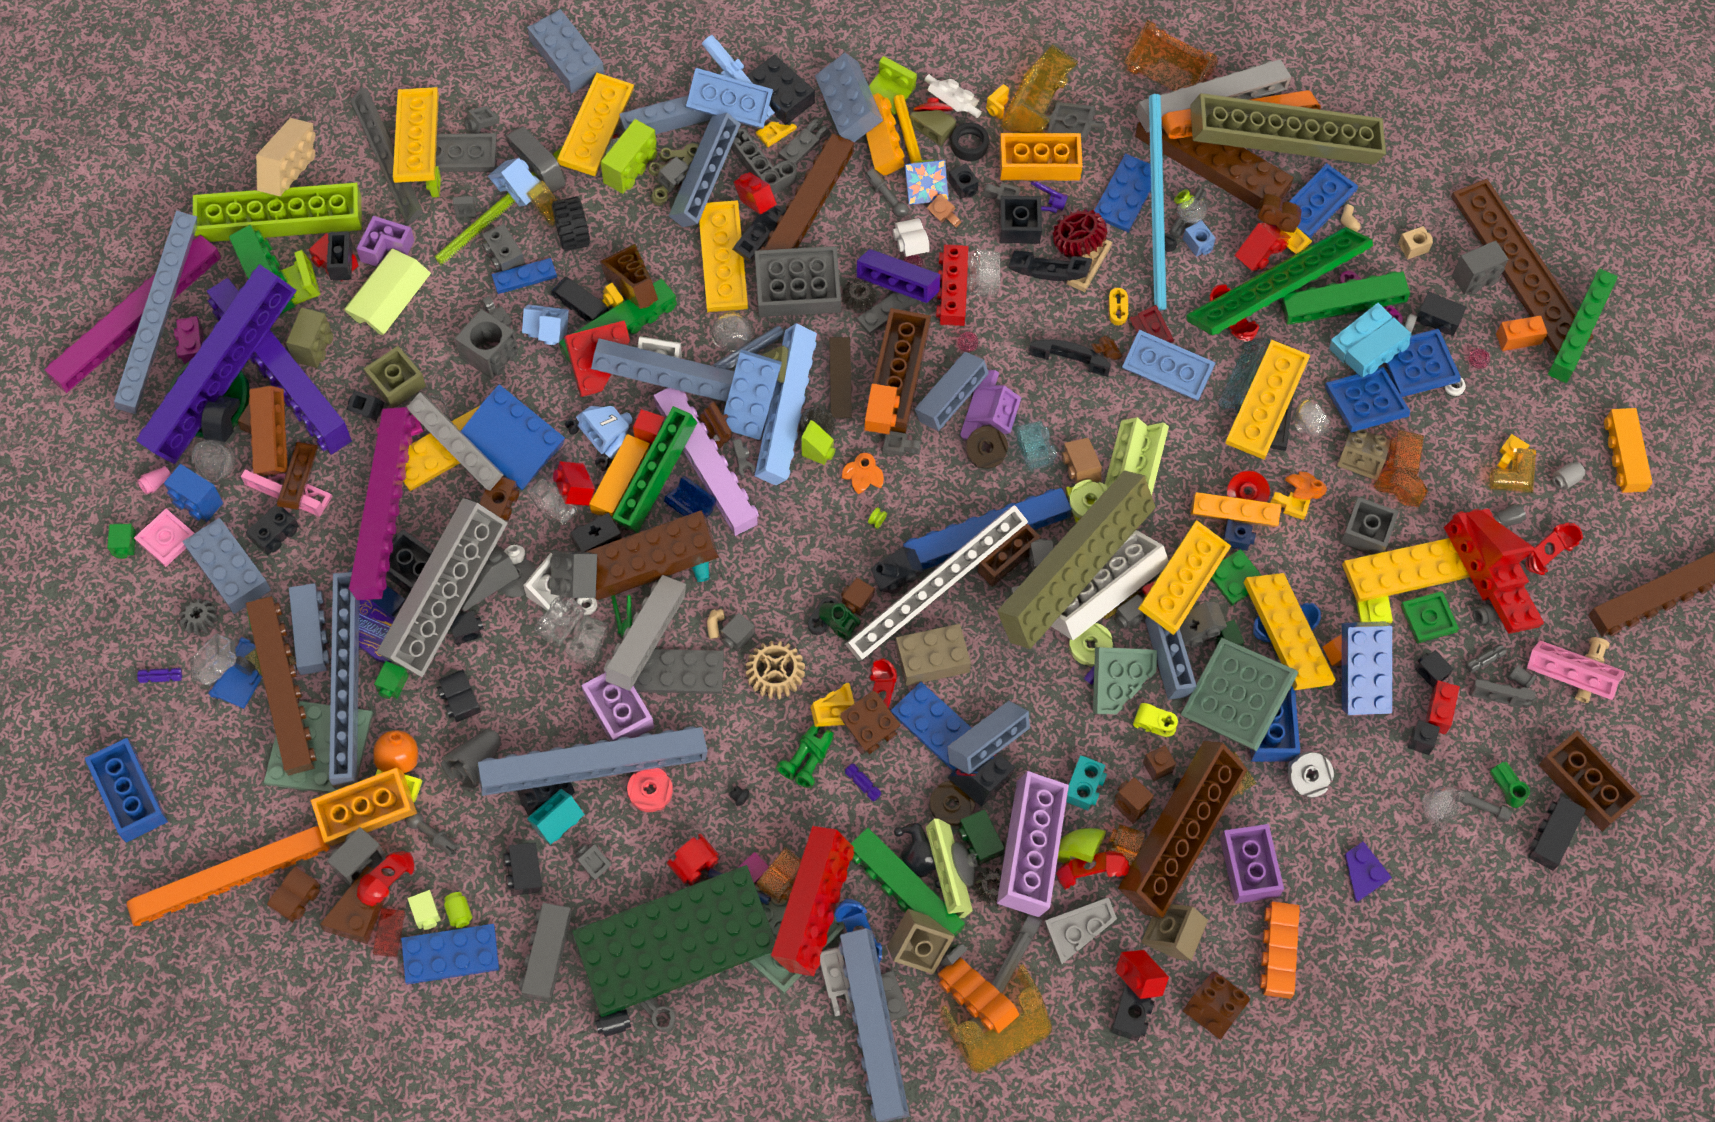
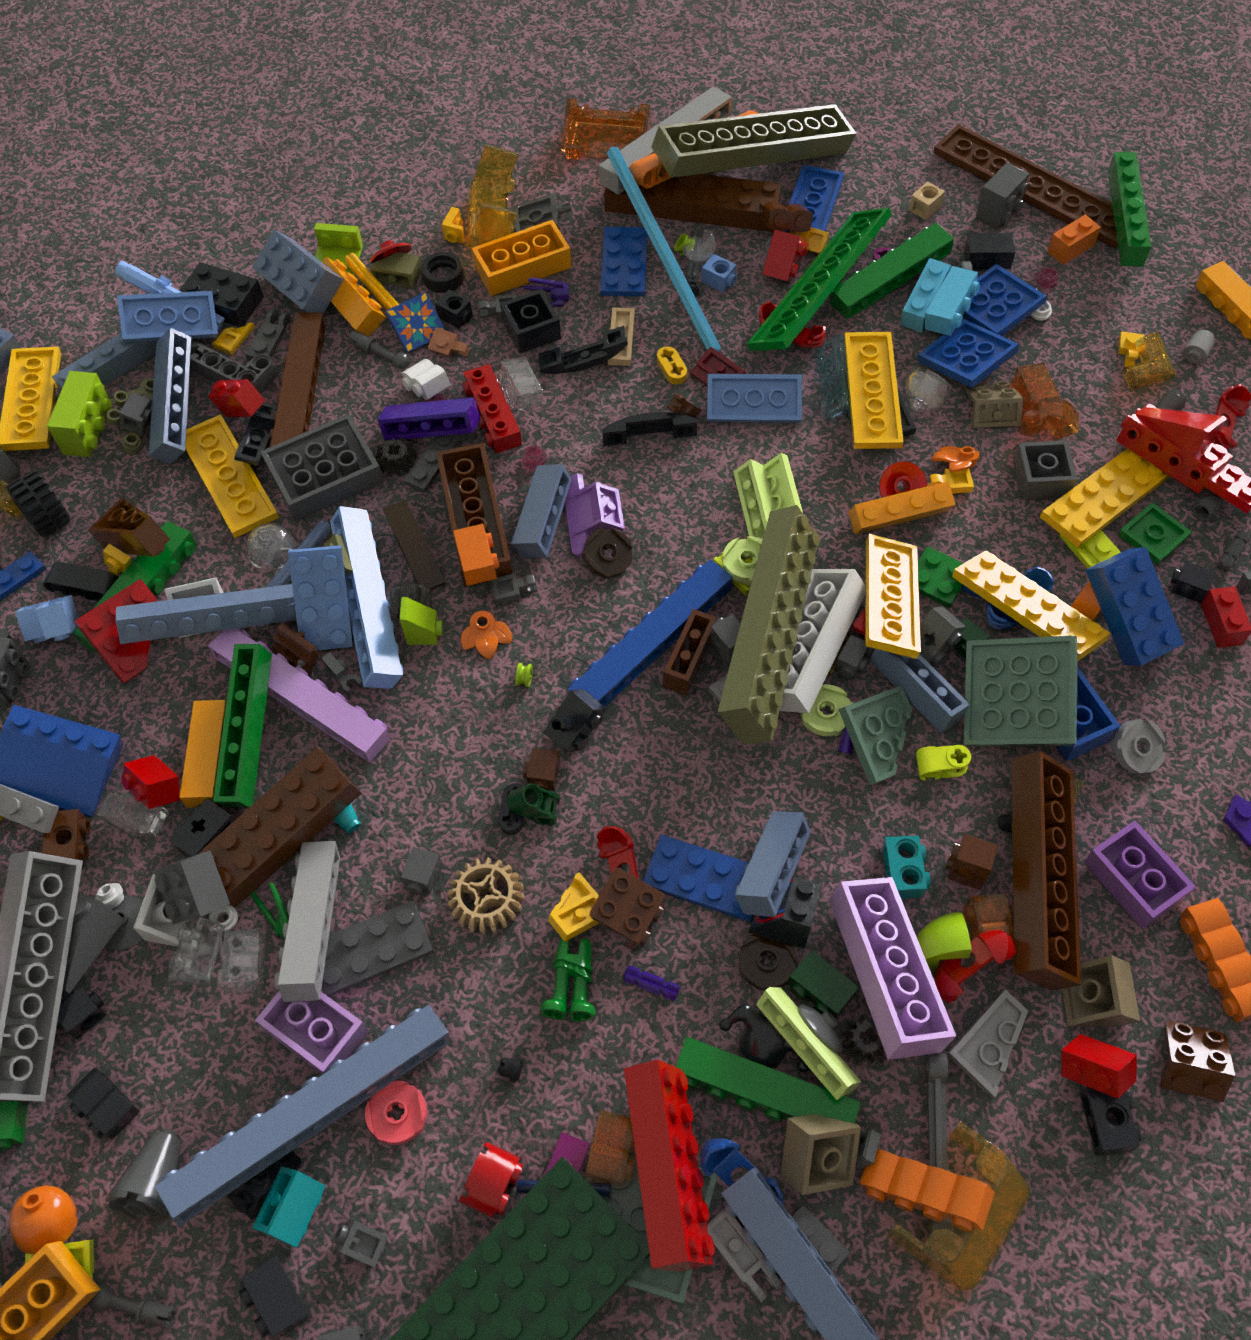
camera: 20 degrees left, 5 degrees down
(603, 428) = (164, 707): light blue torso -> none
(648, 426) = (214, 680): red brick -> none
(690, 498) = (297, 741): clear blue bracket -> none
(712, 624) = (386, 873): tan arm -> none
(932, 654) = (660, 797): dark tan brick -> none
(936, 583) = (625, 718): white brick -> none
(953, 95) = (399, 233): white plate -> none
(1035, 445) = (658, 530): clear light blue brick -> none
(1078, 230) = (598, 310): dark red gear -> none
(1081, 461) = (716, 524): medium nougat brick -> none
(1159, 763) = (973, 807): reddish brown brick -> none
(1237, 541) = (918, 532): dark blue brick -> none
(1348, 220) = (850, 205): tan arm -> none
(1423, 737) = (1228, 655): black brick -> none

